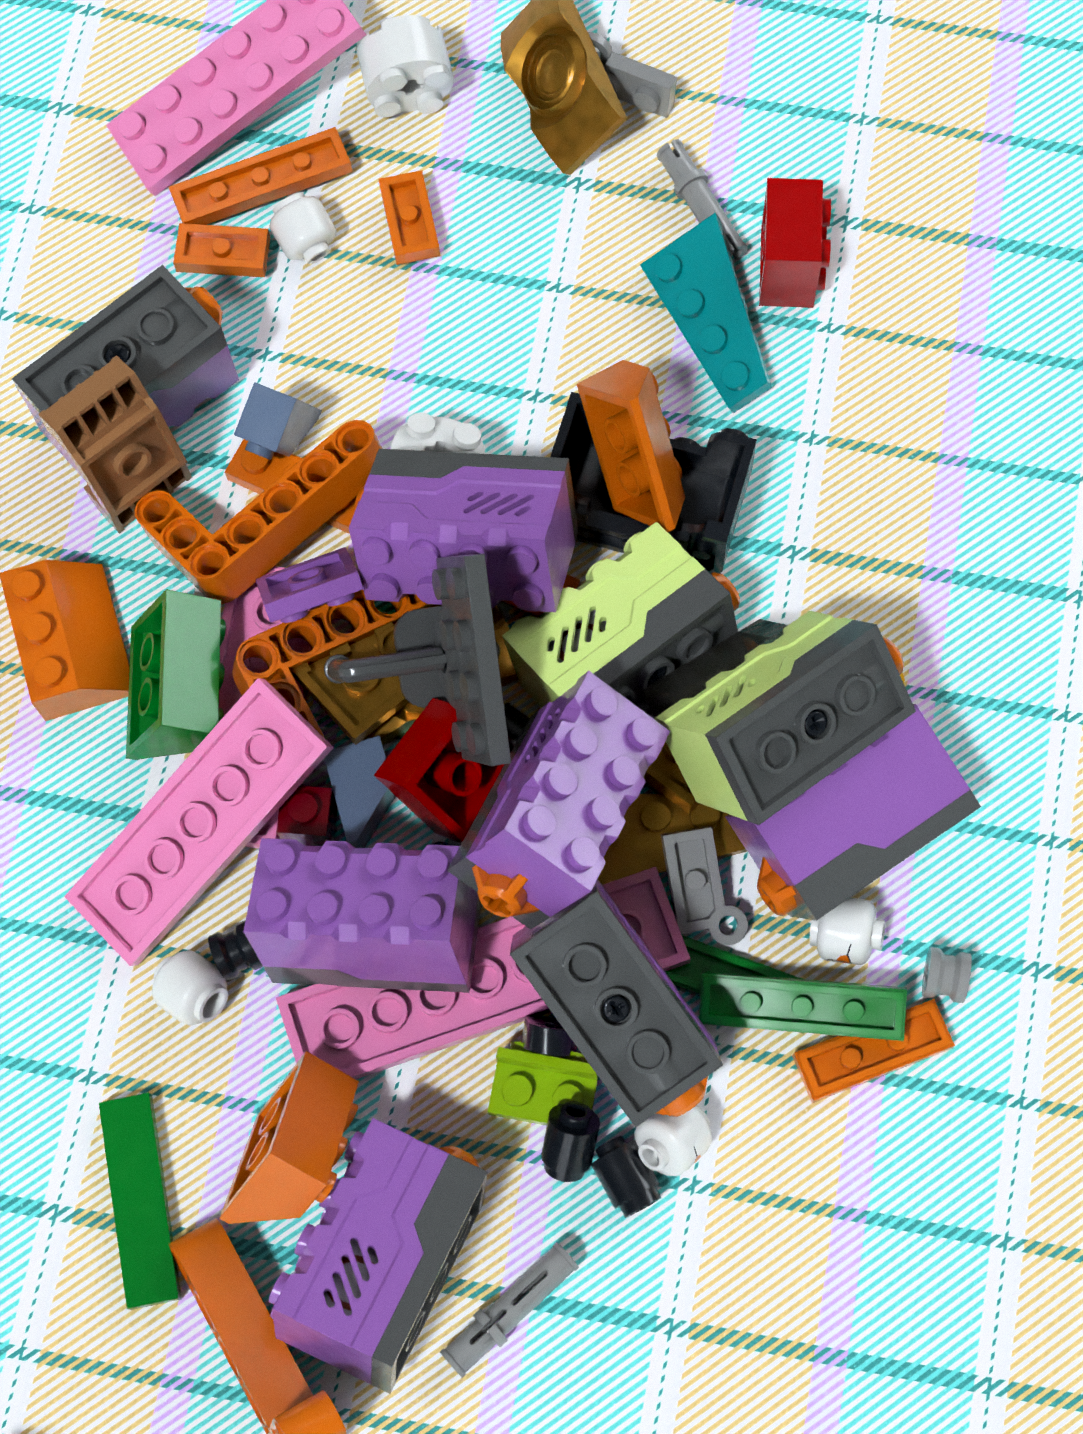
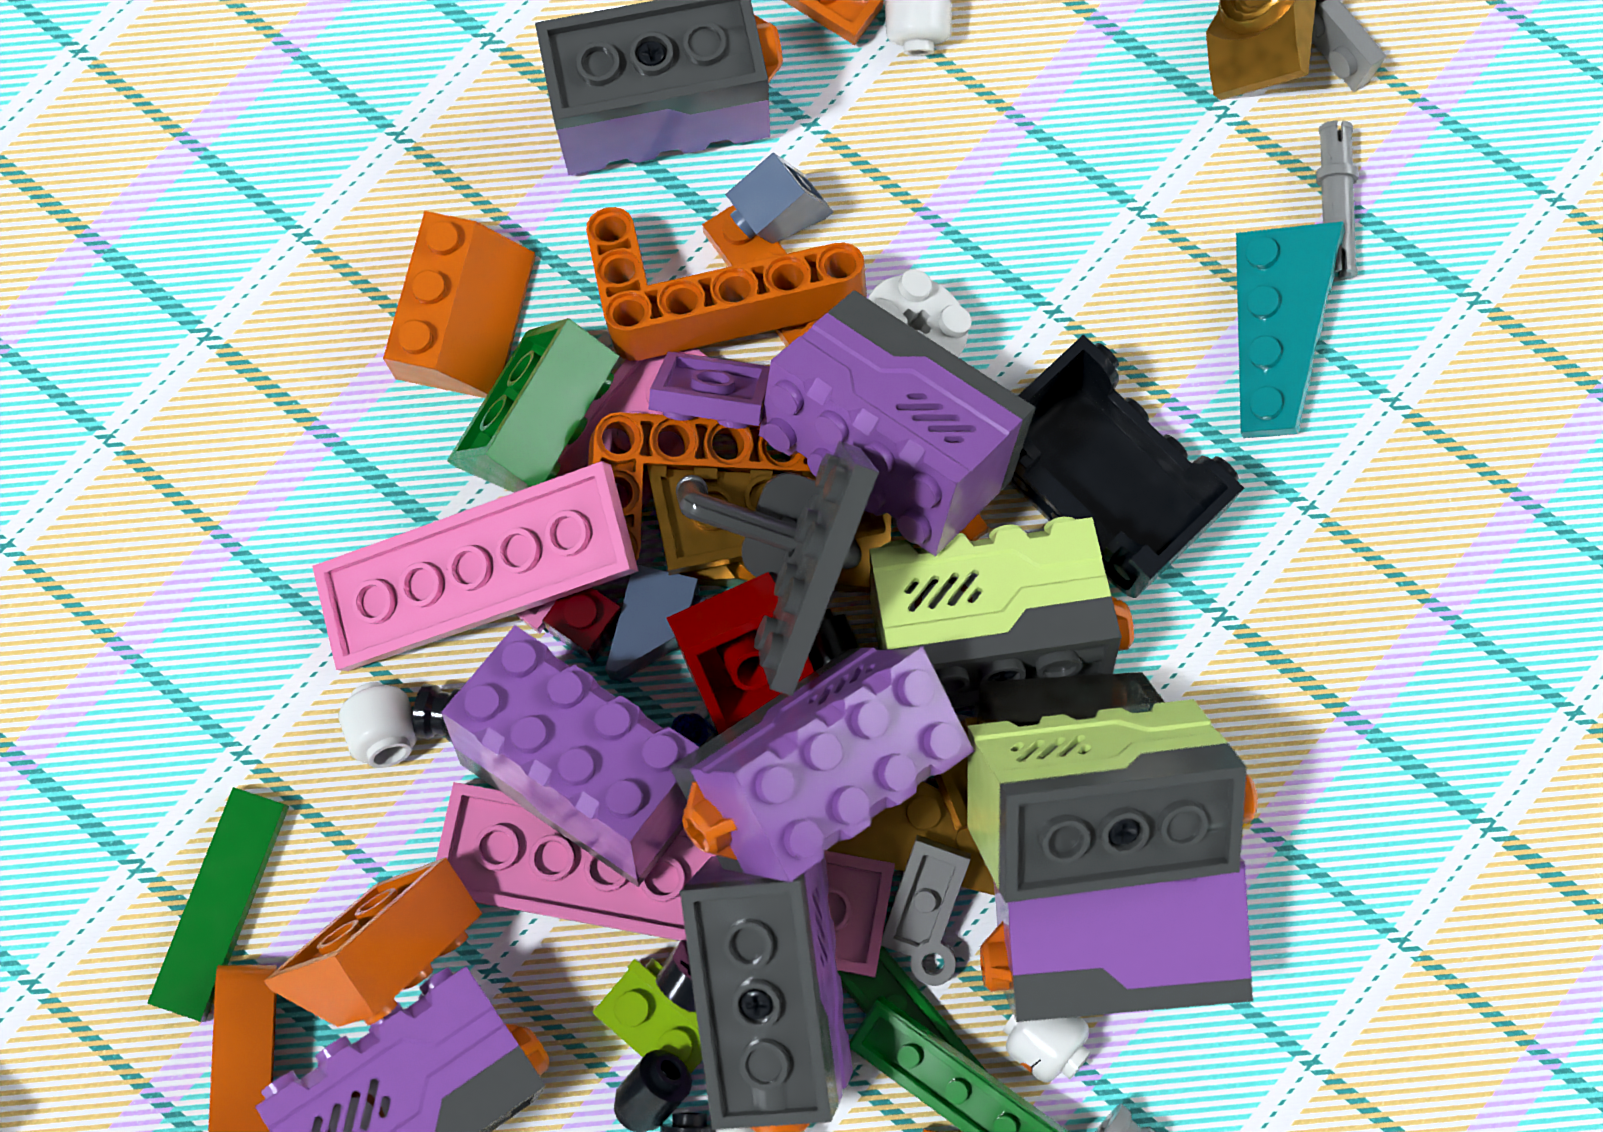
camera: 25 degrees right, 5 degrees up
(117, 441) = (603, 139): medium nougat plate -> none
(409, 217) = (1031, 59): orange plate -> none
(633, 443) = (1117, 423): orange slope -> none
(794, 242) = (1407, 296): red brick -> none

